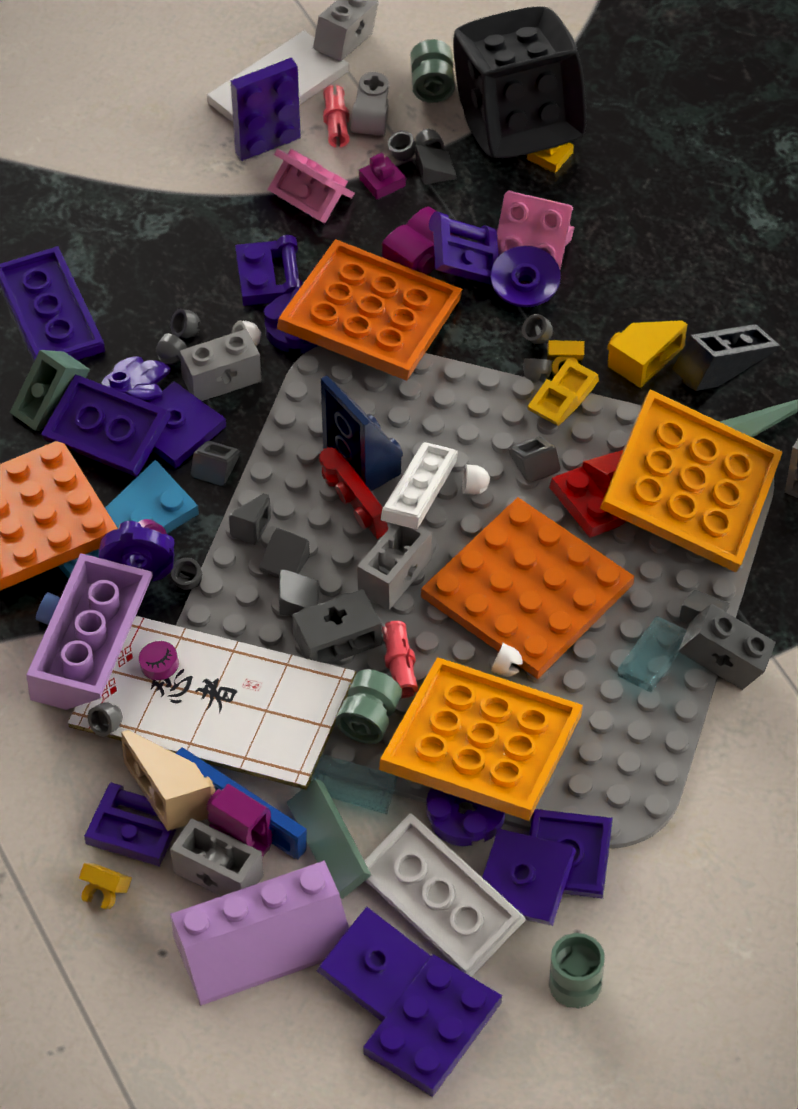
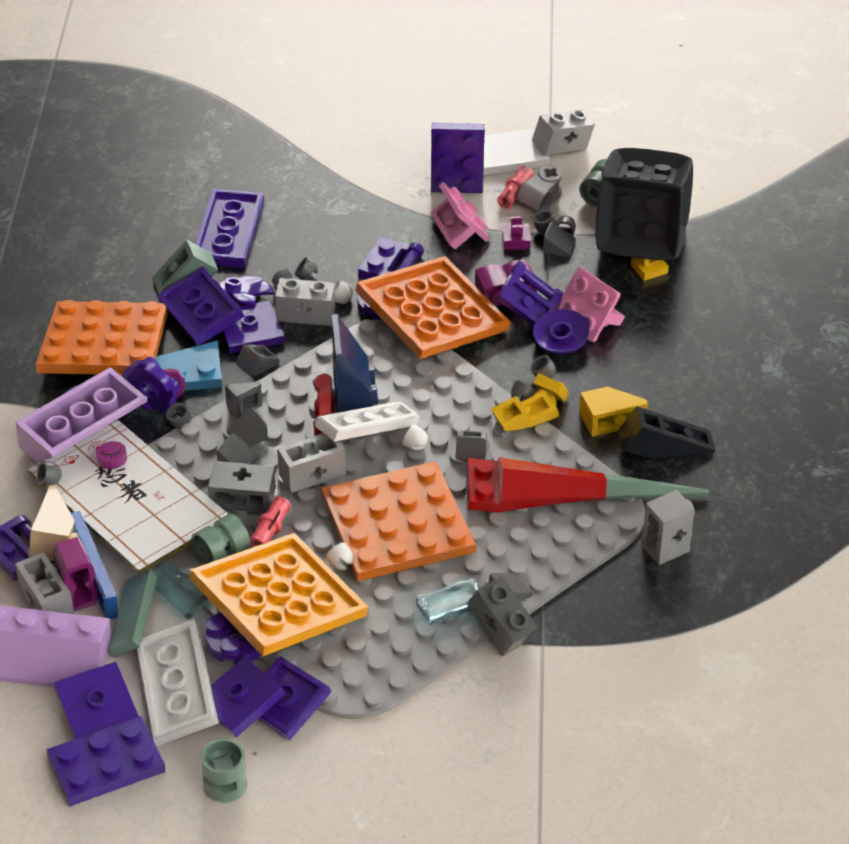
camera: 30 degrees right, 10 degrees down
(692, 480) = (562, 499): light orange plate -> none

